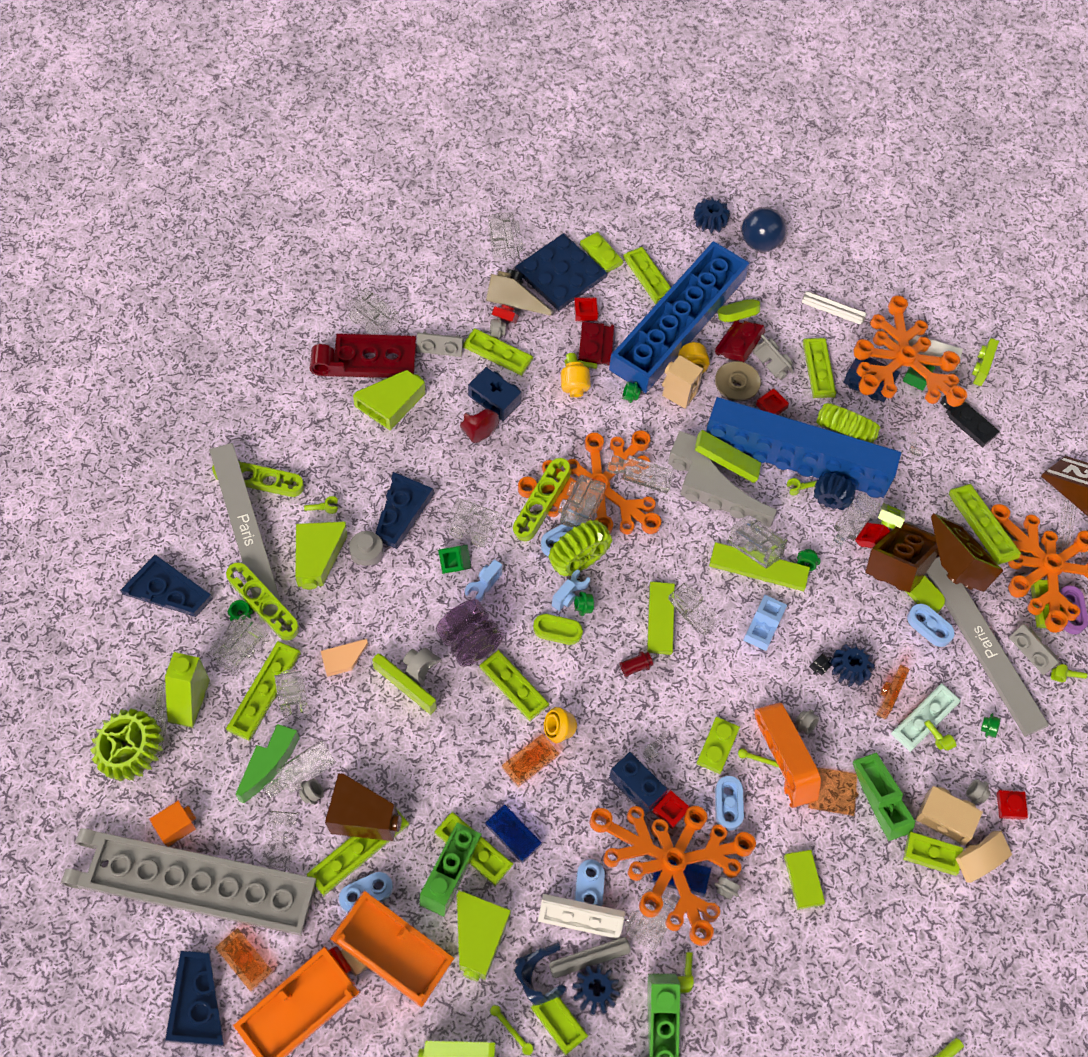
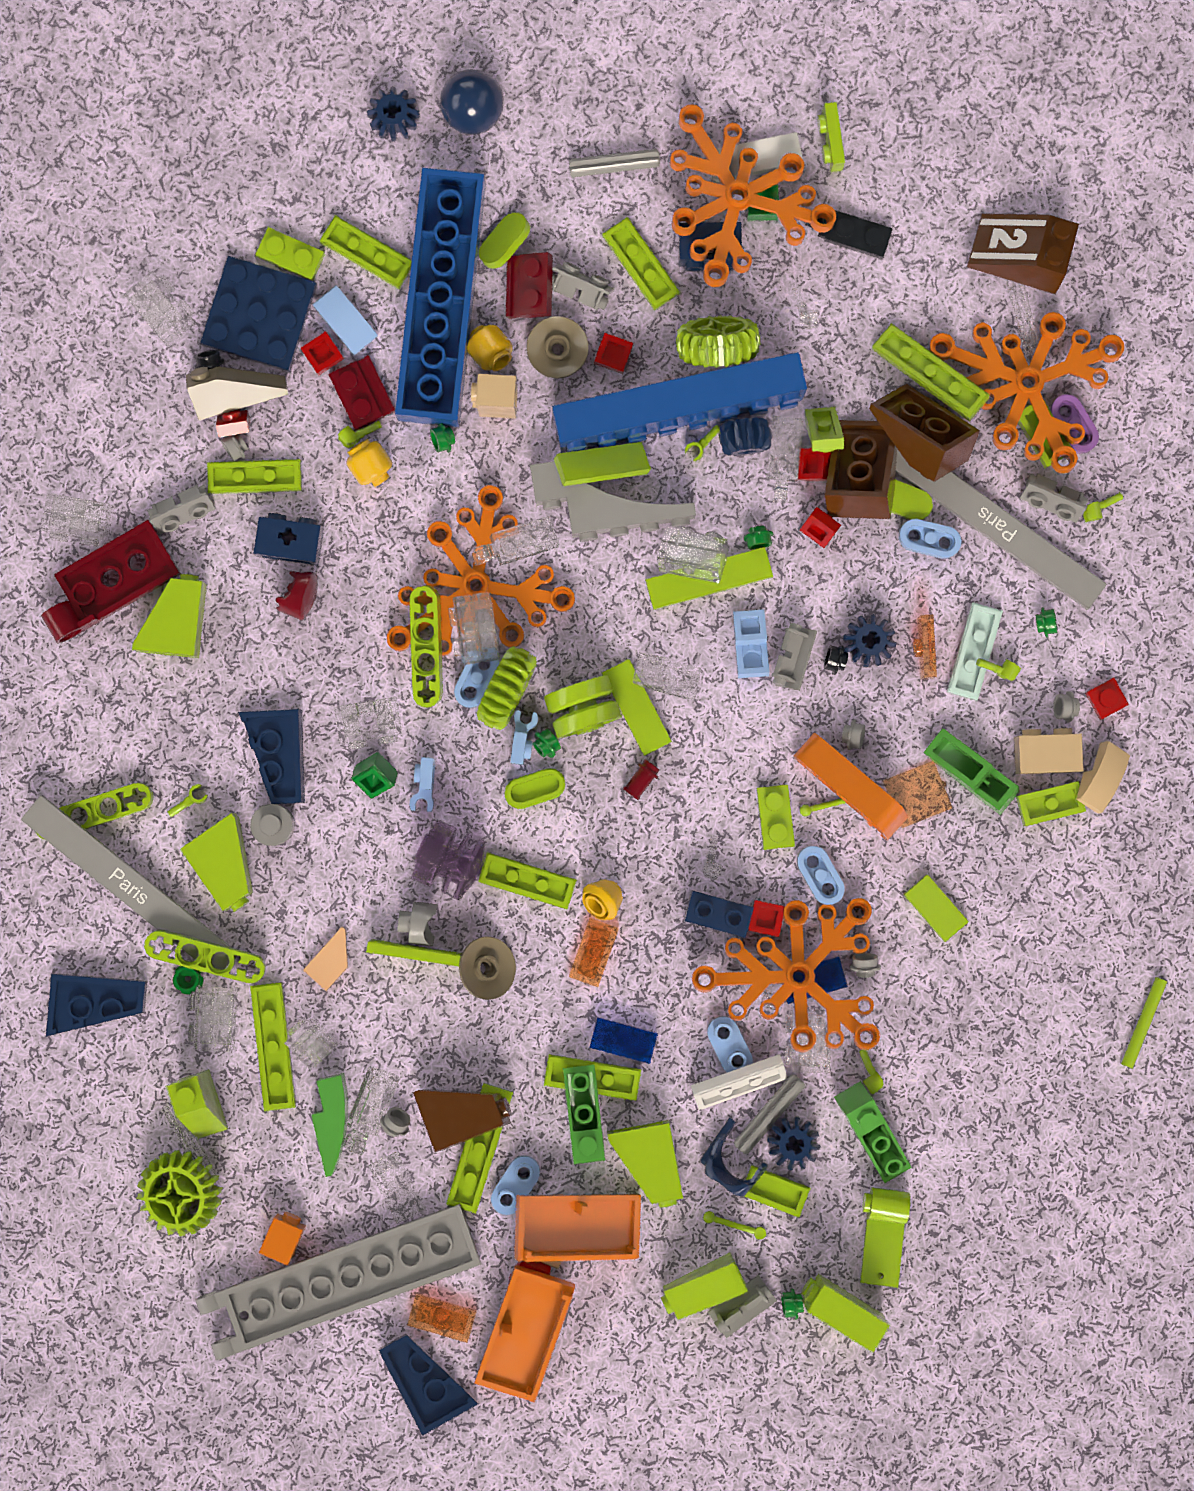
camera: 25 degrees left, 25 degrees up
(457, 720) = (498, 963): none -> dark tan dish
(612, 300) = (345, 320): none -> light blue slope
(625, 588) = (583, 709): none -> lime wheel
(784, 650) = (792, 666): none -> light grey hinge
(855, 575) = (820, 527): none -> red plate

